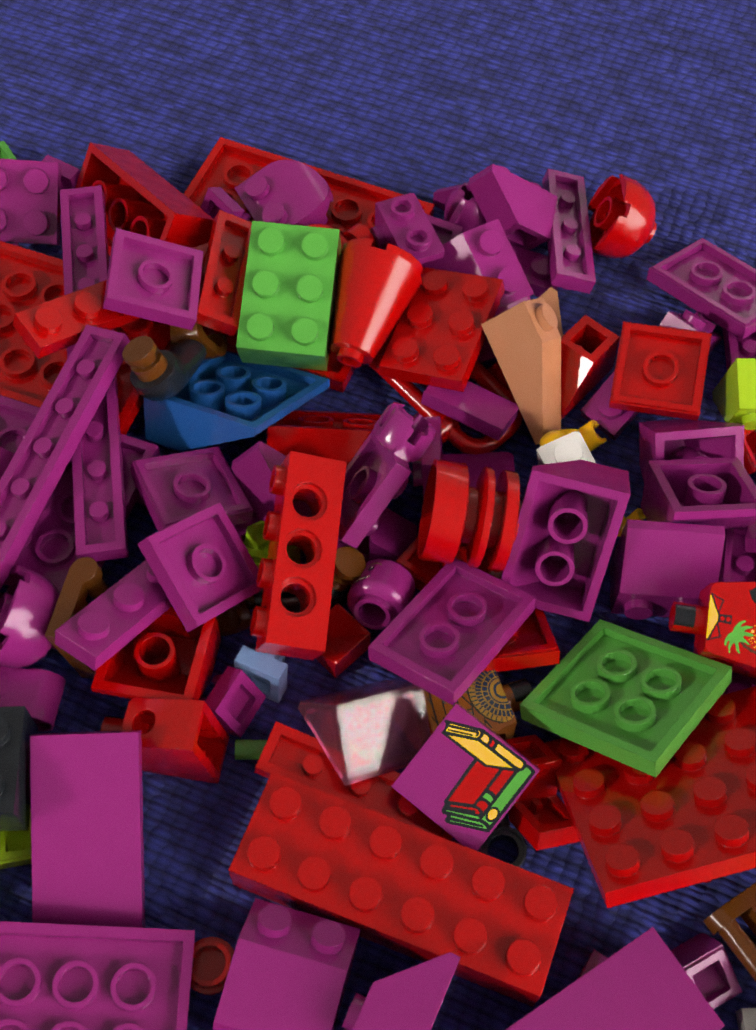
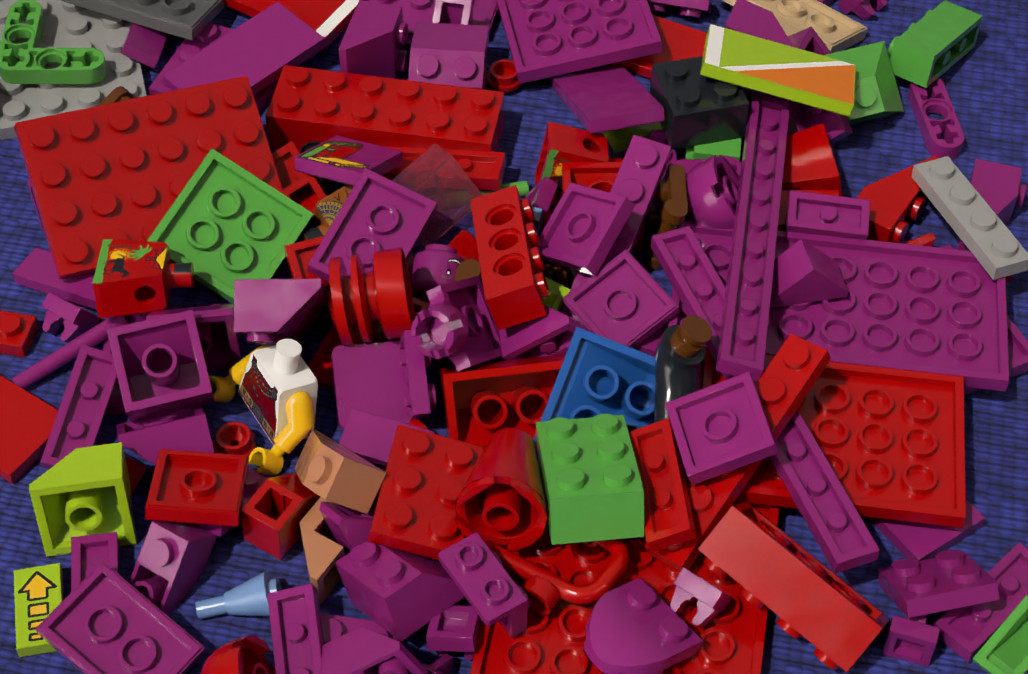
camera: 170 degrees right, 10 degrees down
(613, 310) = (244, 600): none -> medium blue cone
(624, 453) = (231, 434): none -> red plate

